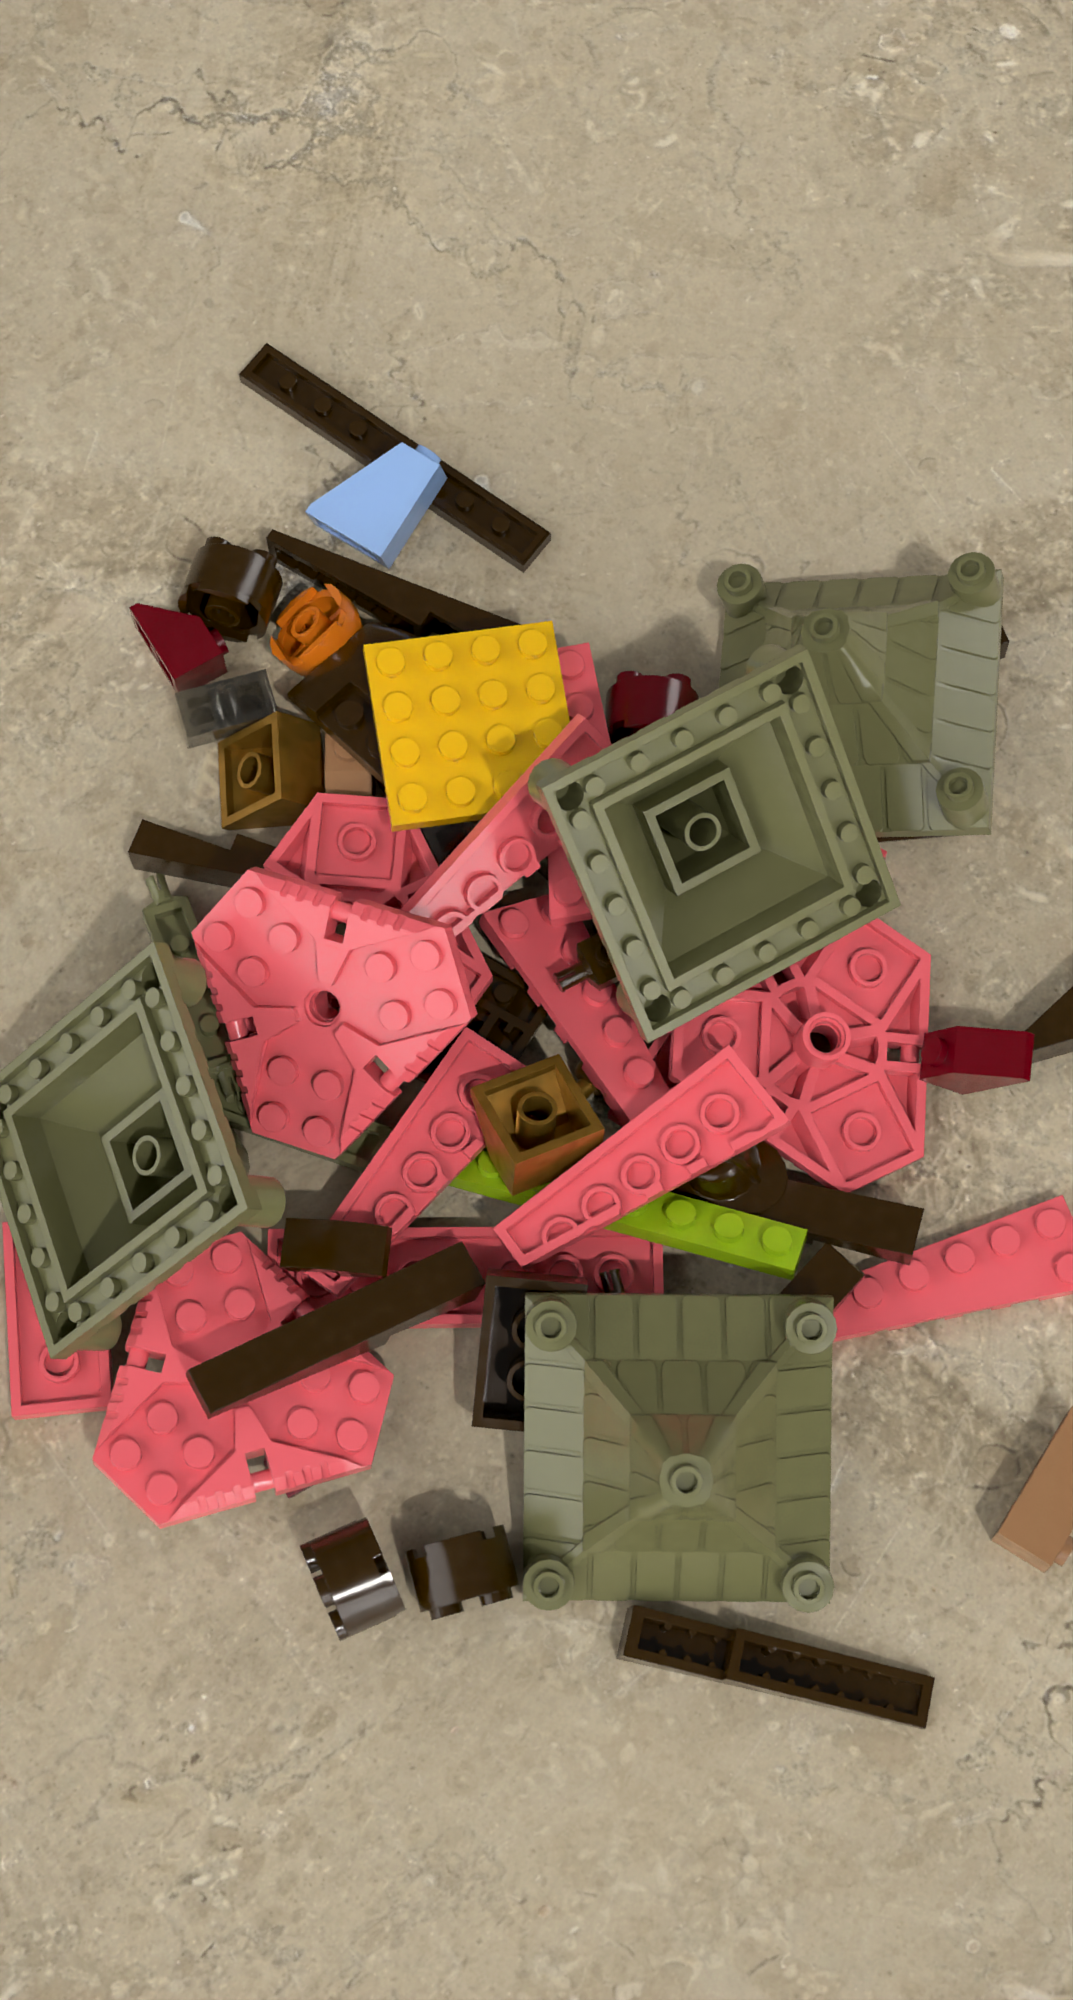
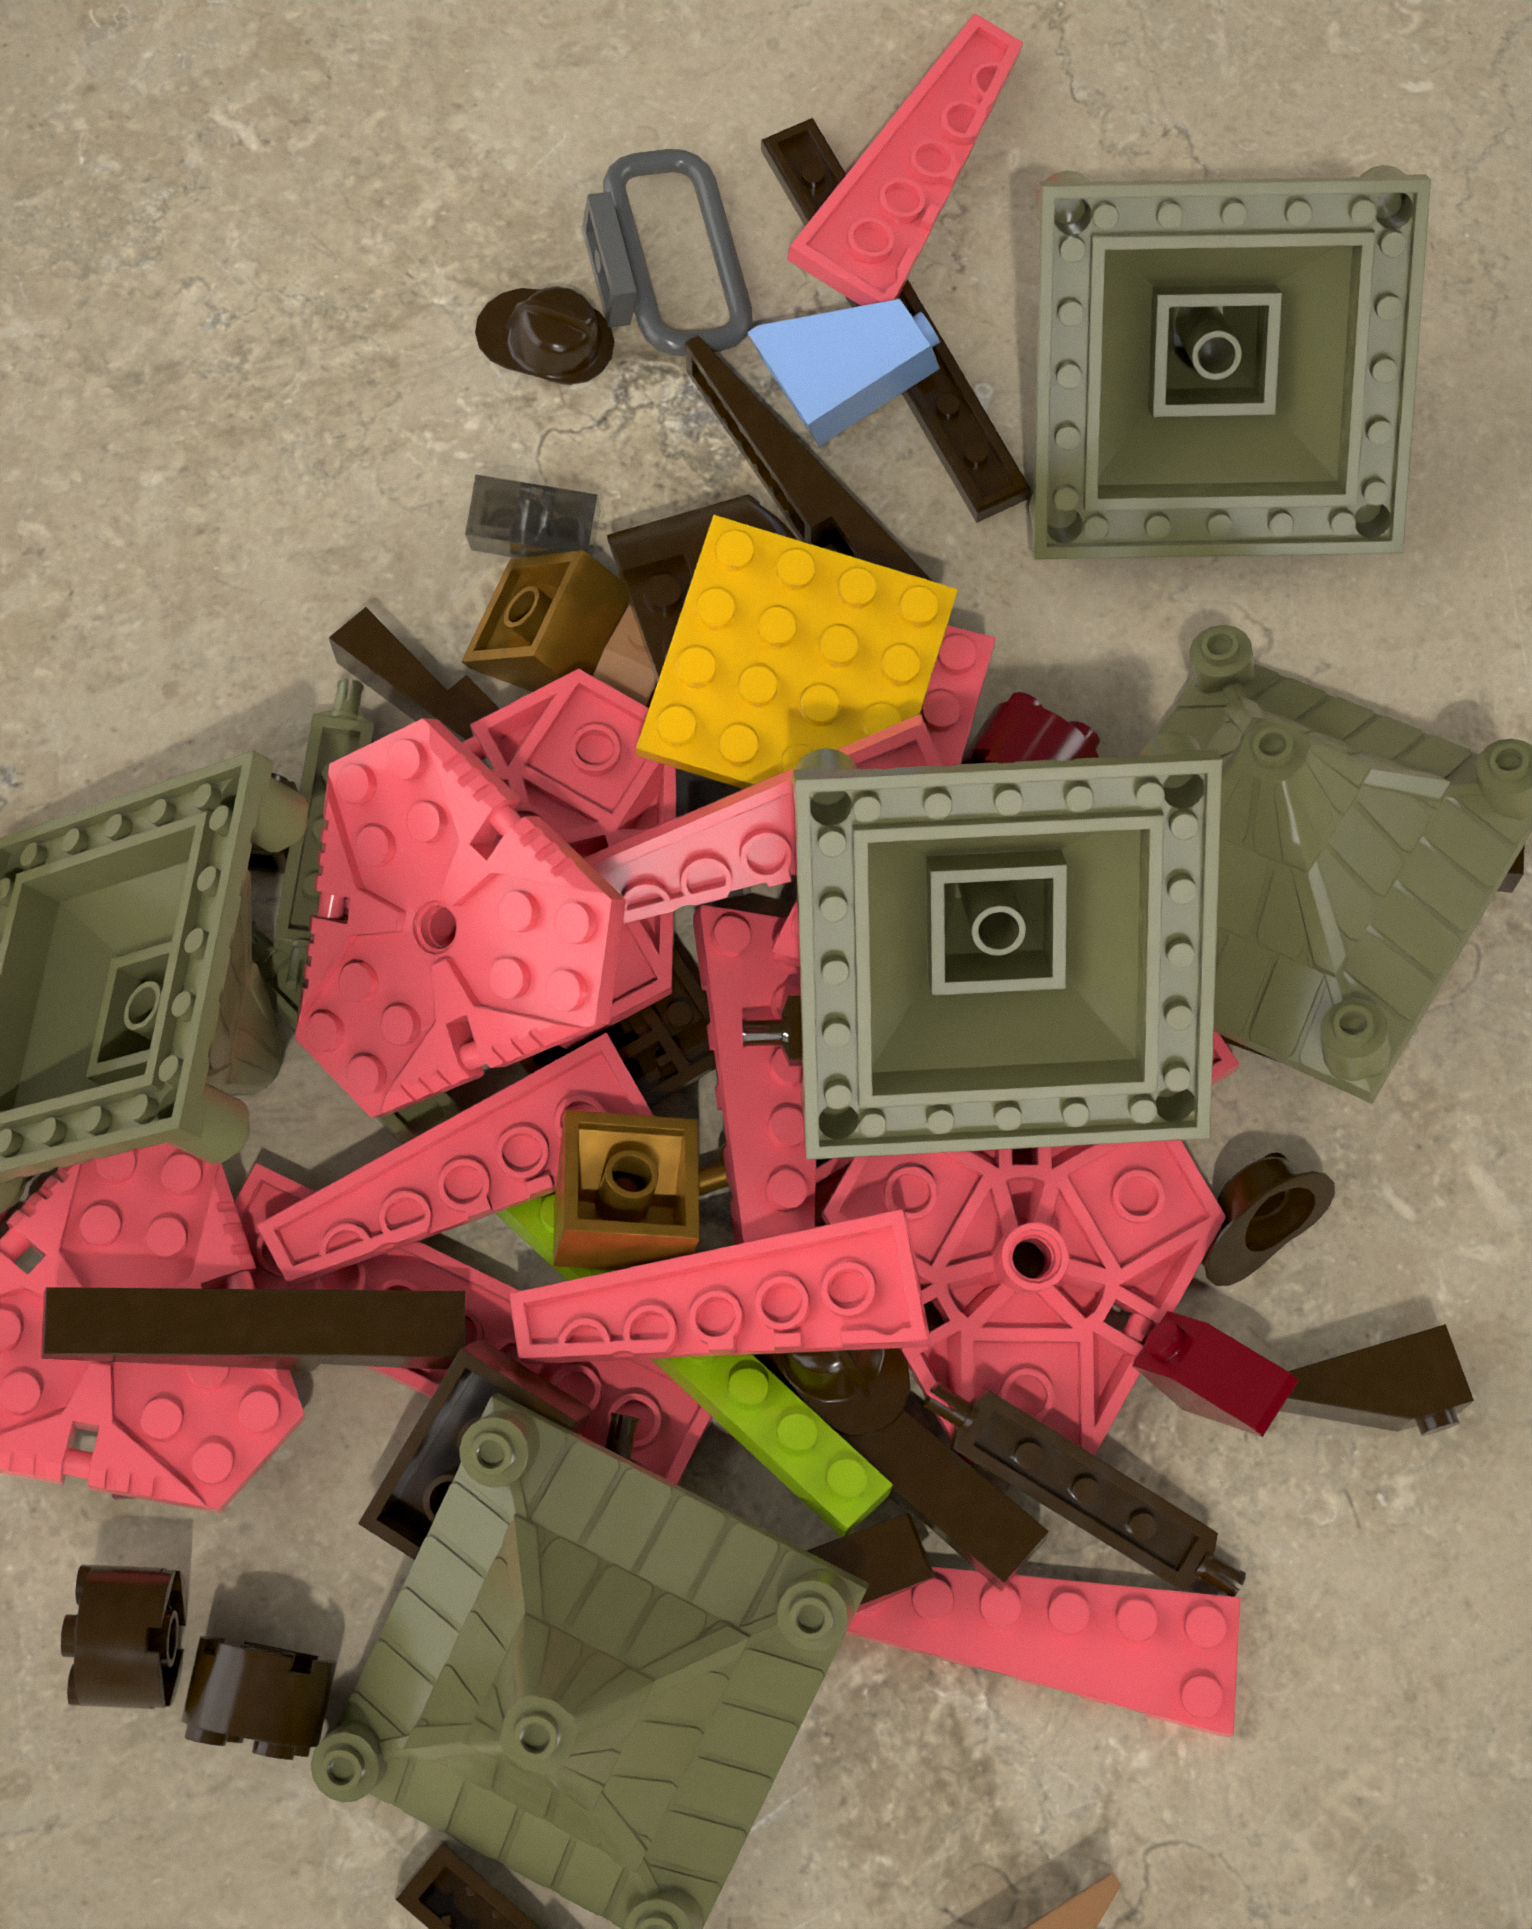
camera: 25 degrees right, 0 degrees up
(150, 574) = (545, 334): none -> dark brown piece
(181, 646) = (524, 426): dark red slope -> none
(187, 504) = (620, 262): none -> dark grey bar
(232, 589) = (612, 385): dark brown brick -> none
(314, 628) = (685, 473): orange cylinder -> none
(336, 1247) = (310, 1225): dark brown slope -> none
(354, 371) = (892, 196): none -> coral wing
(652, 390) = (1226, 365): none -> olive piece
(929, 1173) = (1084, 1489): none -> dark brown plate
(952, 937) = (1263, 1211): none -> dark brown piece

